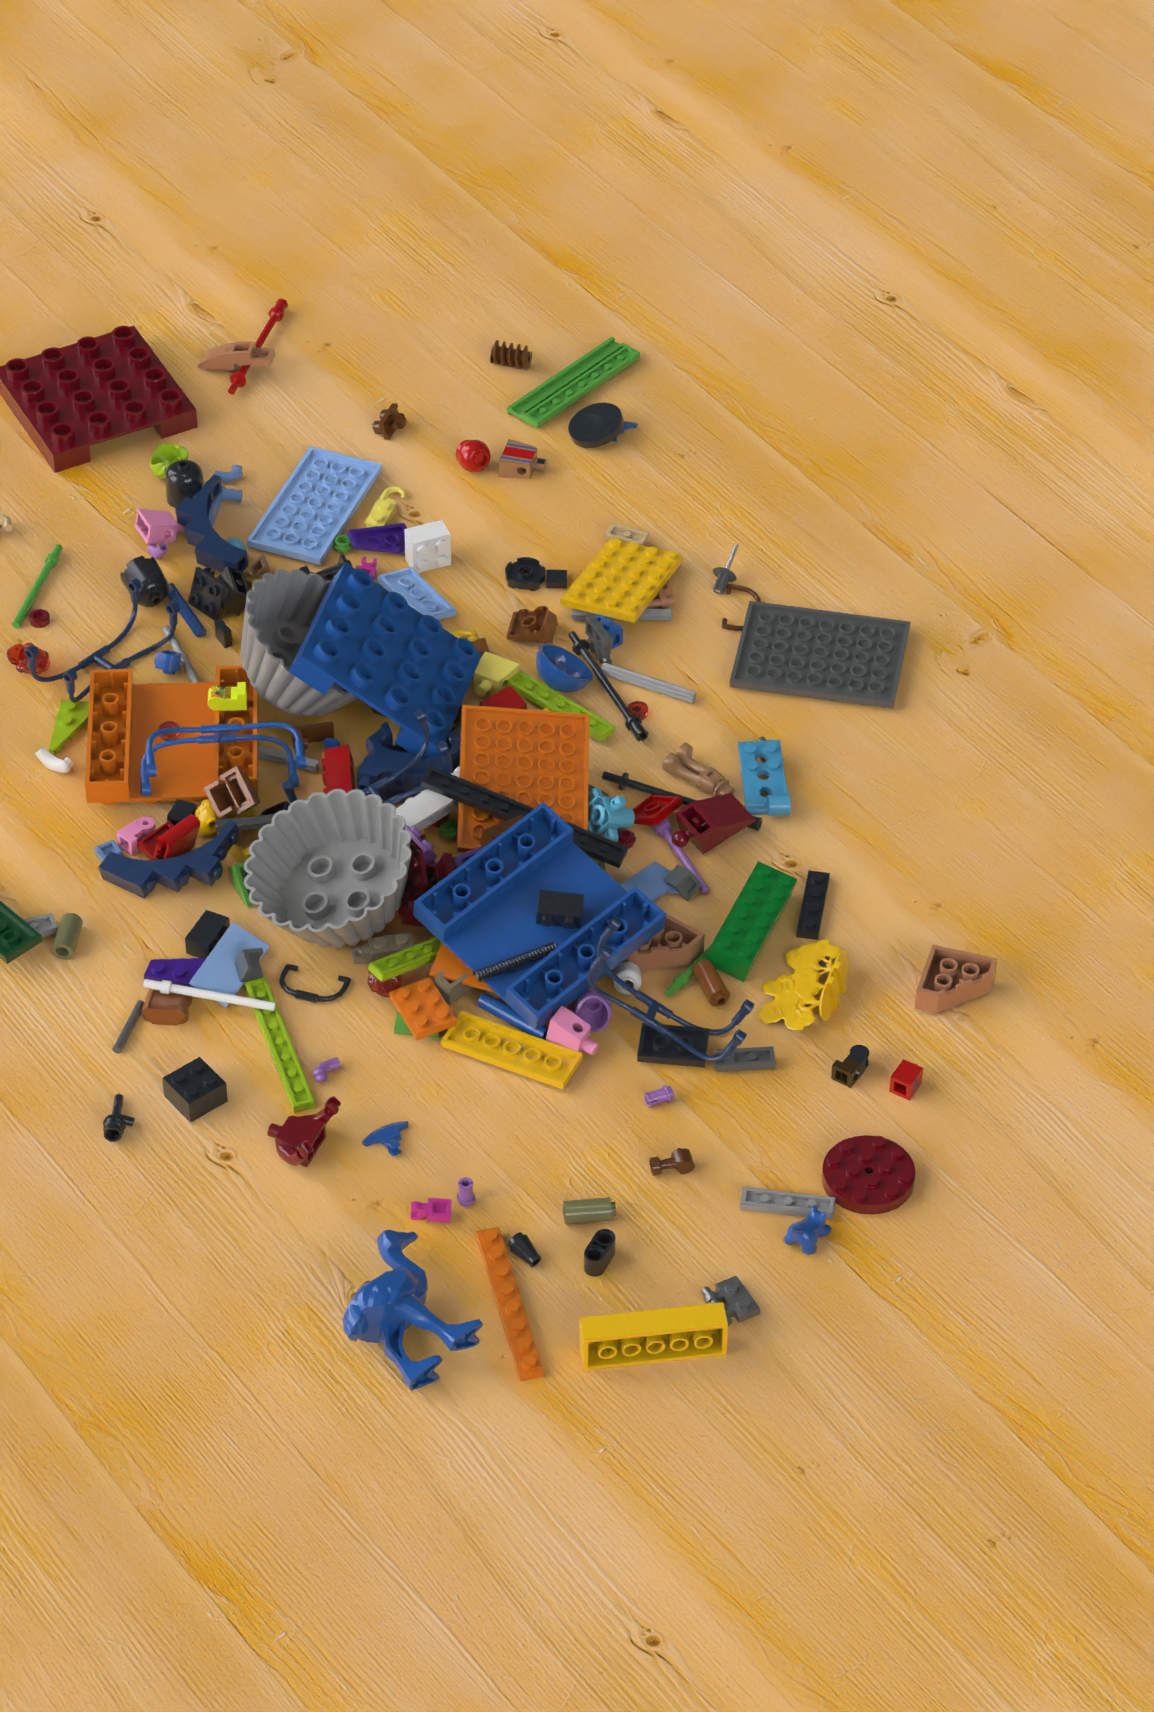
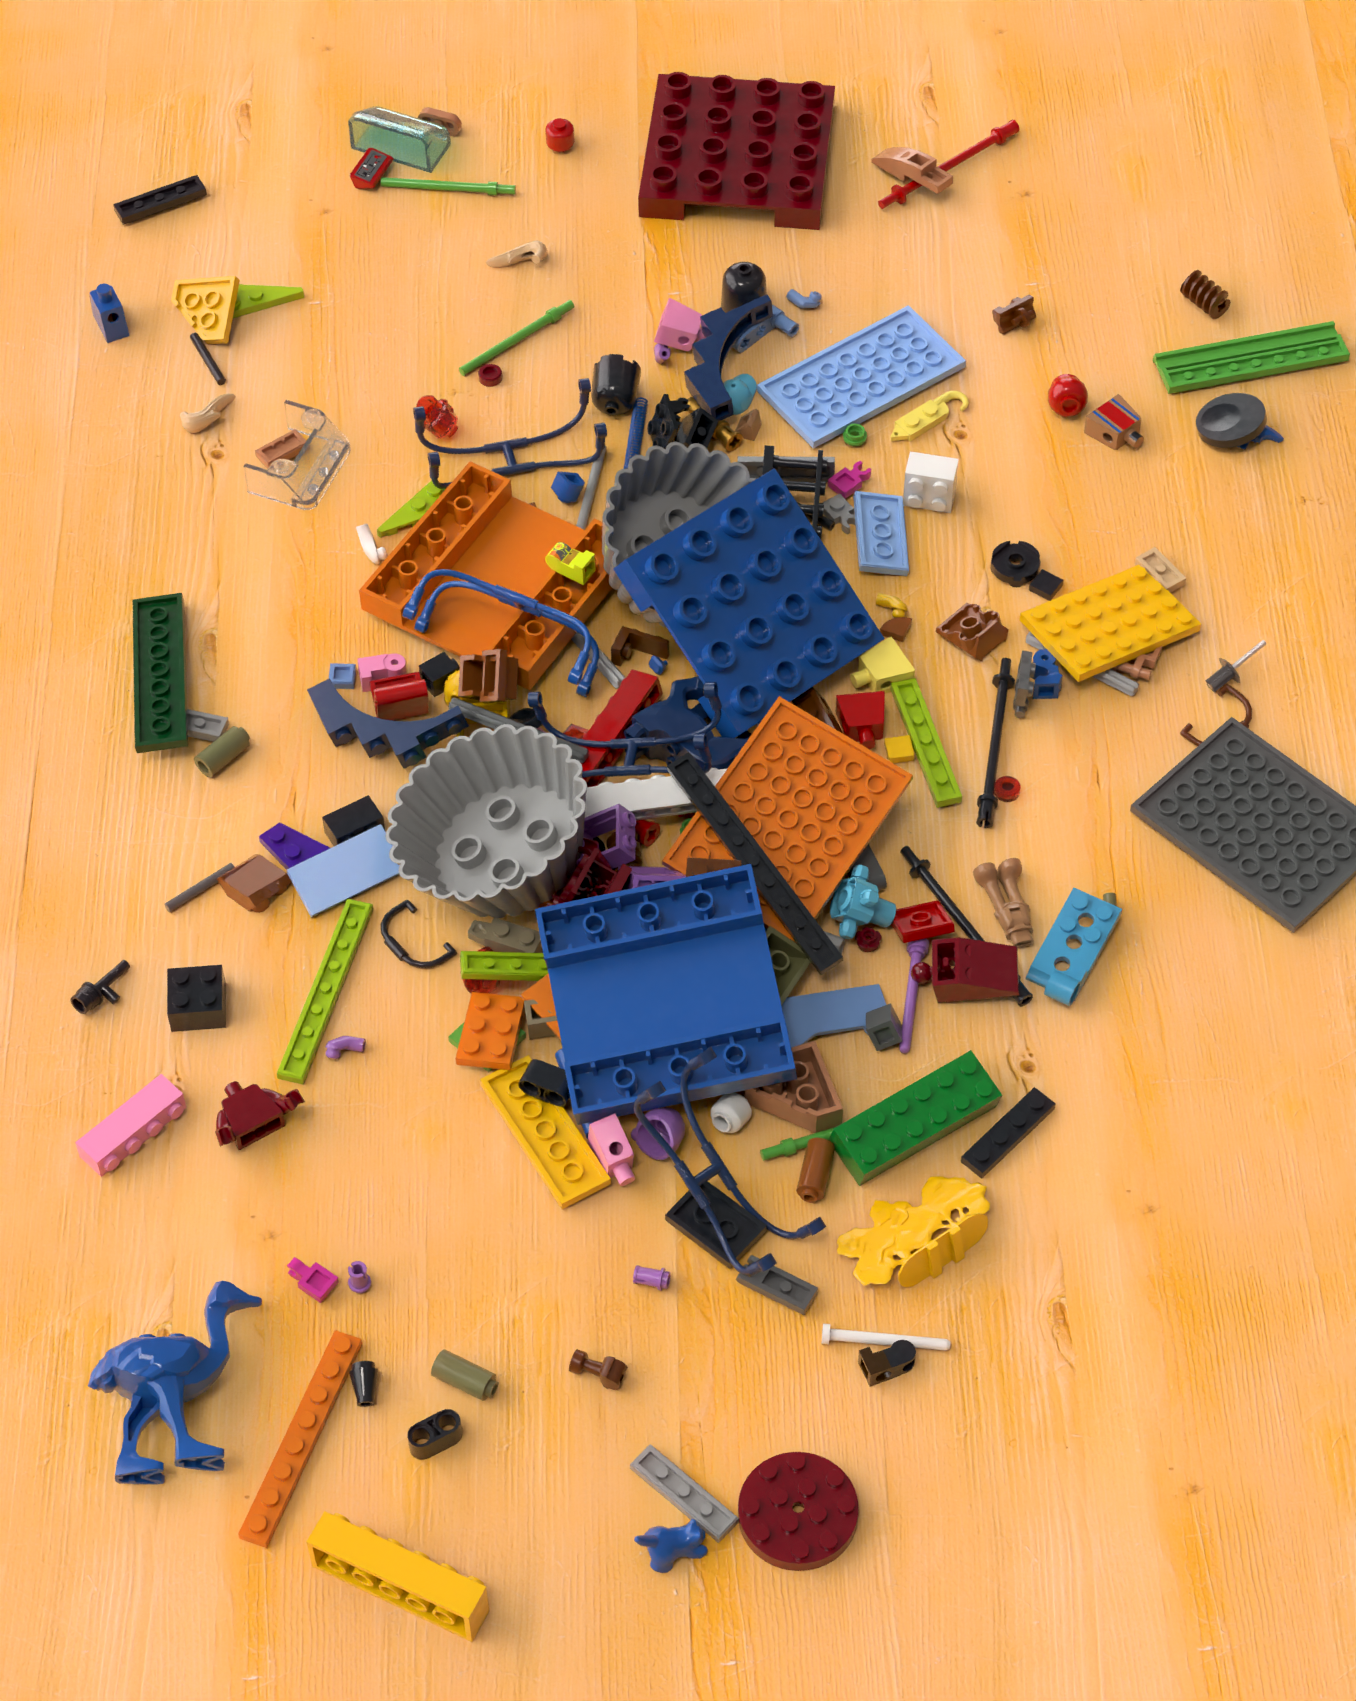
camera: 35 degrees right, 10 degrees up
(165, 456) = (753, 250): lime hair -> none
(167, 987) = (262, 865): white bar -> none
(168, 736) = (500, 568): clear red tile -> none
(220, 1186) = (131, 1125): none -> bright pink brick
(248, 964) = (360, 884): dark grey panel -> none
(379, 538) = (891, 446): dark purple wing -> none
(388, 1136) = (342, 1161): blue piece -> none
(493, 1016) = (545, 1083): none -> black beam
(527, 959) = (603, 1038): black piece -> none
(559, 909) = (689, 999): black brick -> none
(562, 669) = (955, 698): blue piece -> none
(648, 683) = (1044, 761): light grey axle -> none
(736, 1298) = (534, 1582): flat silver plate -> none
(801, 1070) = (881, 1338): none -> white bar
(906, 1079) = (932, 1415): red brick -> none
(953, 979) = (1081, 1318): nougat brick -> none

